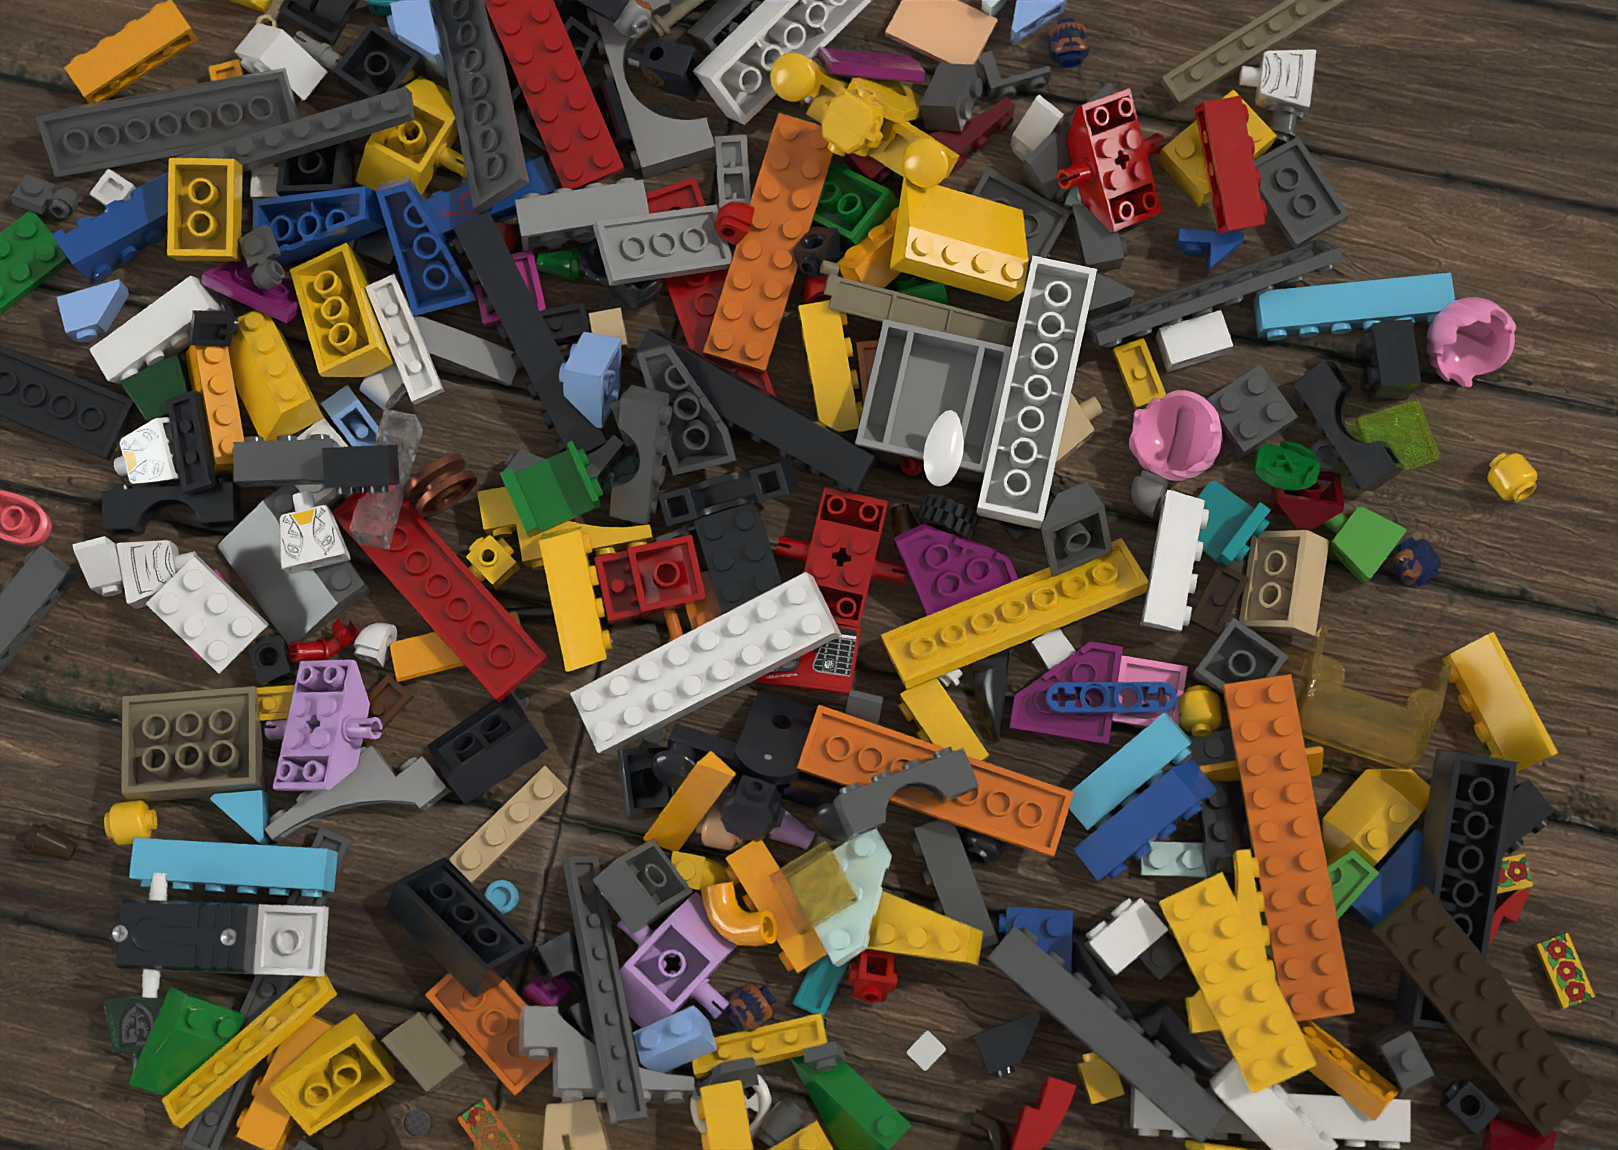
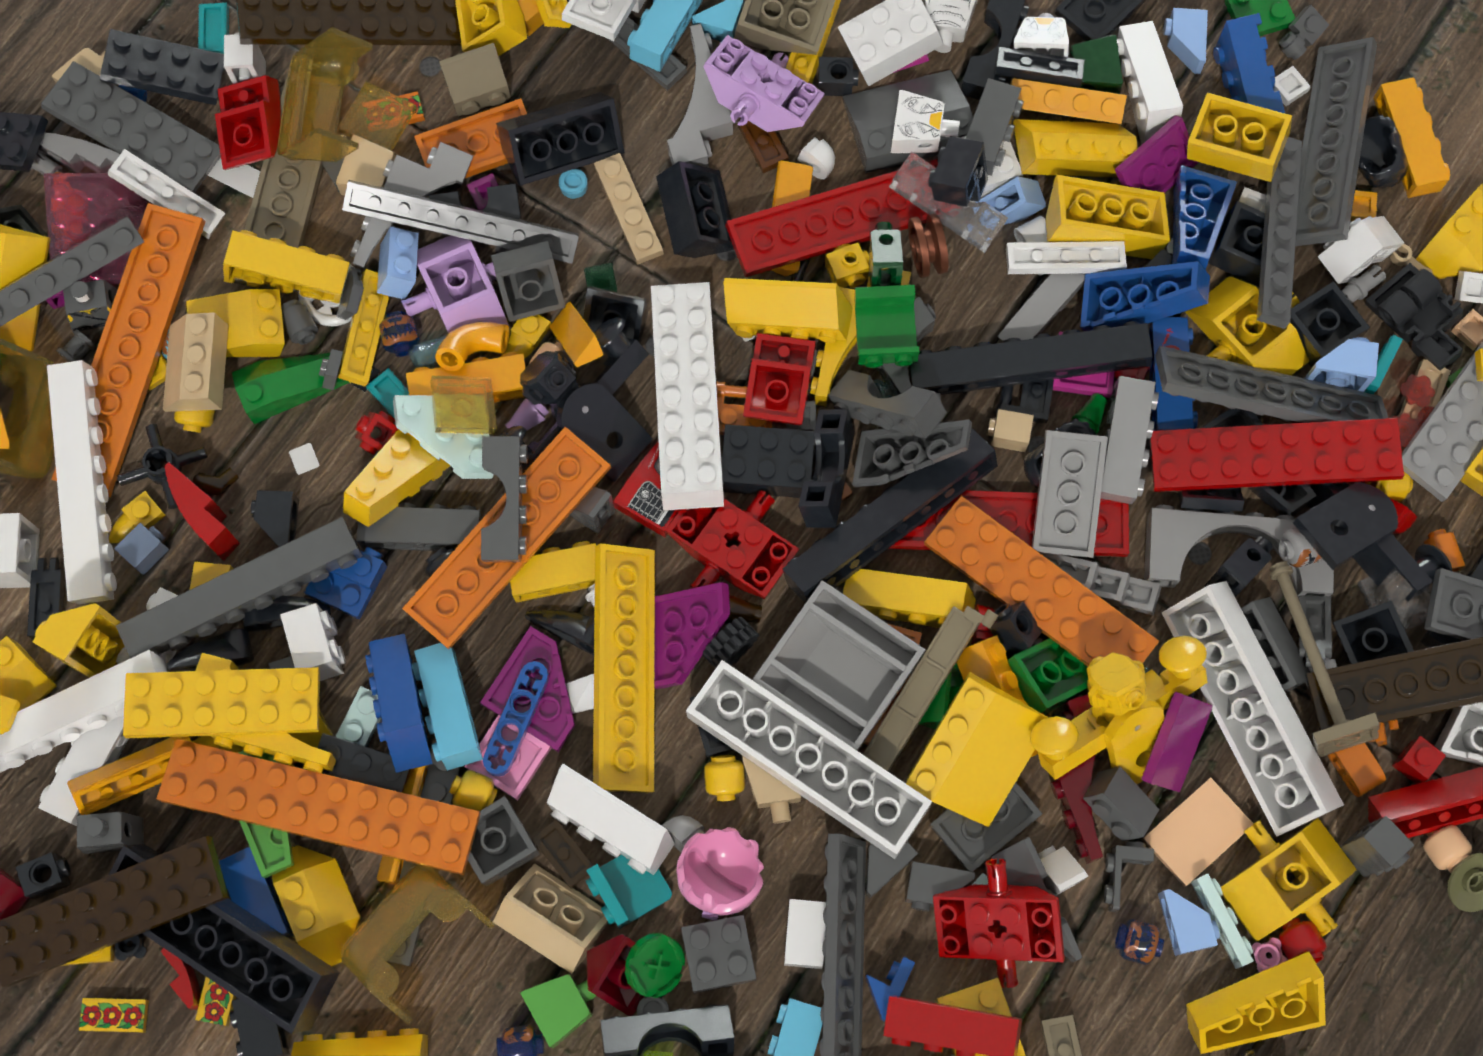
camera: 110 degrees right, 5 degrees down
(154, 74) = (1382, 147): none -> black piece
(213, 327) = (1130, 111): black bracket -> none
(259, 251) = (1186, 170): dark grey plate -> none
(322, 648) = (830, 116): red piece -> none
(479, 515) = (885, 252): none -> dark green torso
(593, 376) = (973, 393): light blue slope -> none
(606, 816) = (601, 277): none -> clear green slope
(734, 221) = (1070, 562): red piece -> none
(758, 964) = (424, 353): none -> clear light blue cone
(943, 449) = (784, 650): white arm -> none
(1075, 529) = (673, 744): dark grey slope -> none
(1077, 470) = (724, 777): none -> yellow head
(1138, 373) = (795, 871): yellow plate -> none

